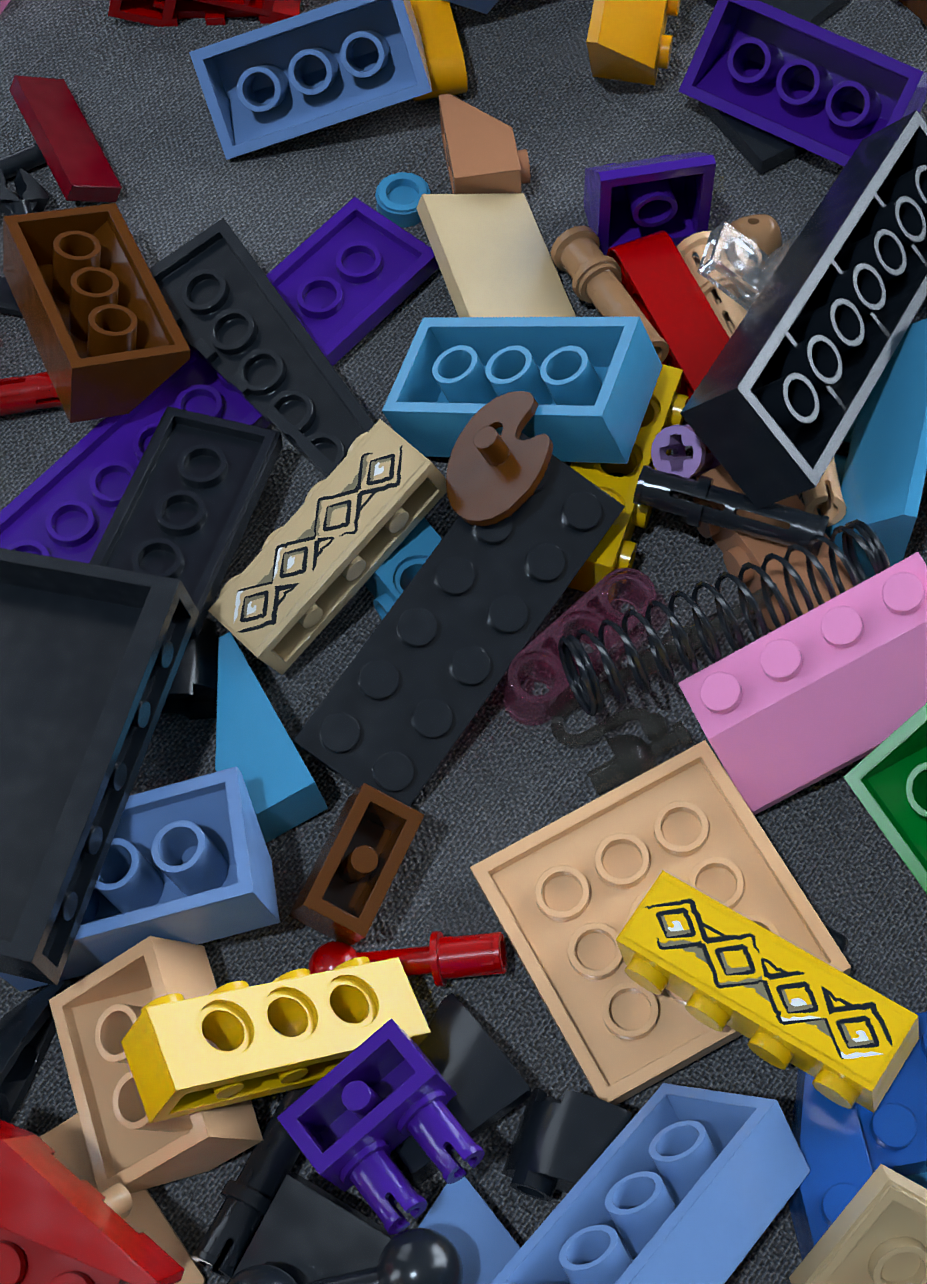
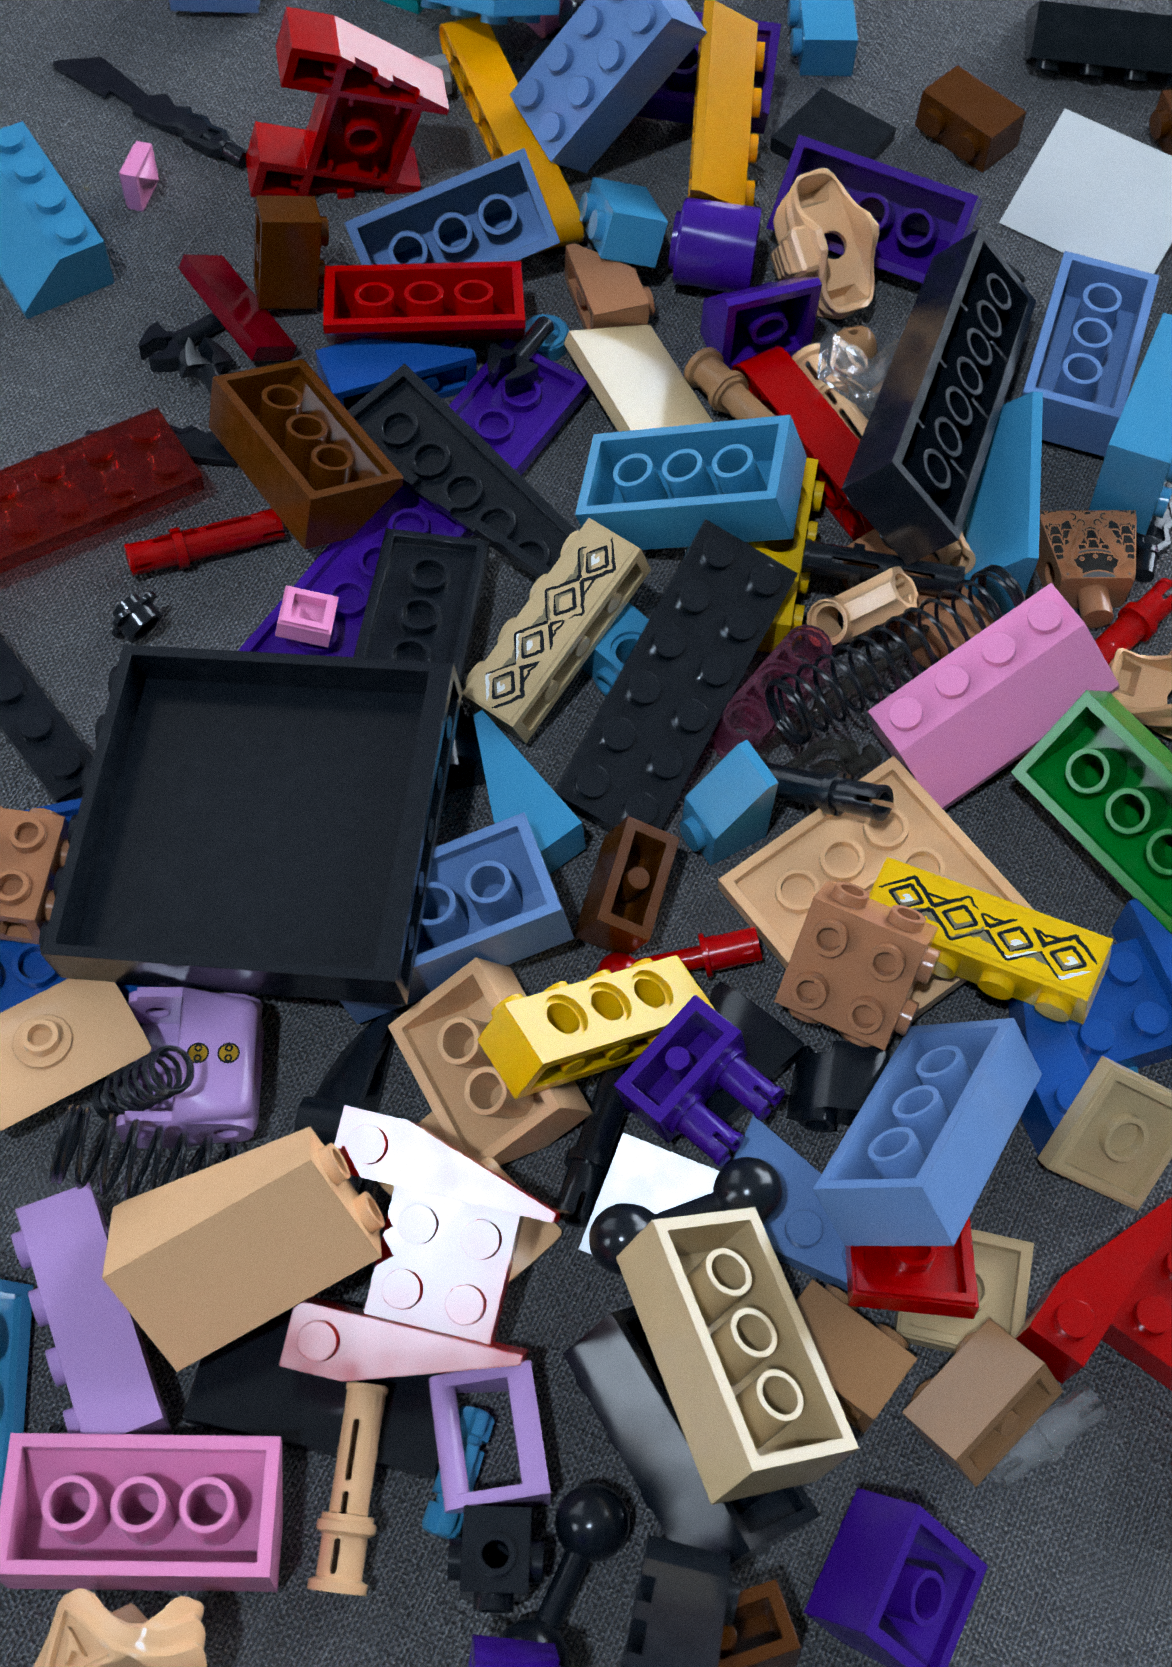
camera: 15 degrees left, 0 degrees up
(56, 501) = (306, 616): none -> bright pink tile
(123, 80) = (288, 252): none -> reddish brown brick
(179, 213) = (363, 363): none -> blue slope
(264, 149) = (424, 302): none -> red slope
(358, 221) = (519, 356): none -> black bar
(495, 472) = (684, 550): reddish brown piece -> none
(496, 780) = (729, 805): none -> dark azure slope
(508, 73) = (623, 222): none -> dark azure brick
(602, 1003) = (858, 965): none -> nougat brick
(611, 107) = (714, 245): none -> dark purple piece
(618, 777) = (832, 791): none -> black pin
(676, 438) = (835, 511): lavender bush -> none
(702, 553) = (864, 605): none -> light nougat piece
(733, 72) = (817, 207): none -> light nougat piece

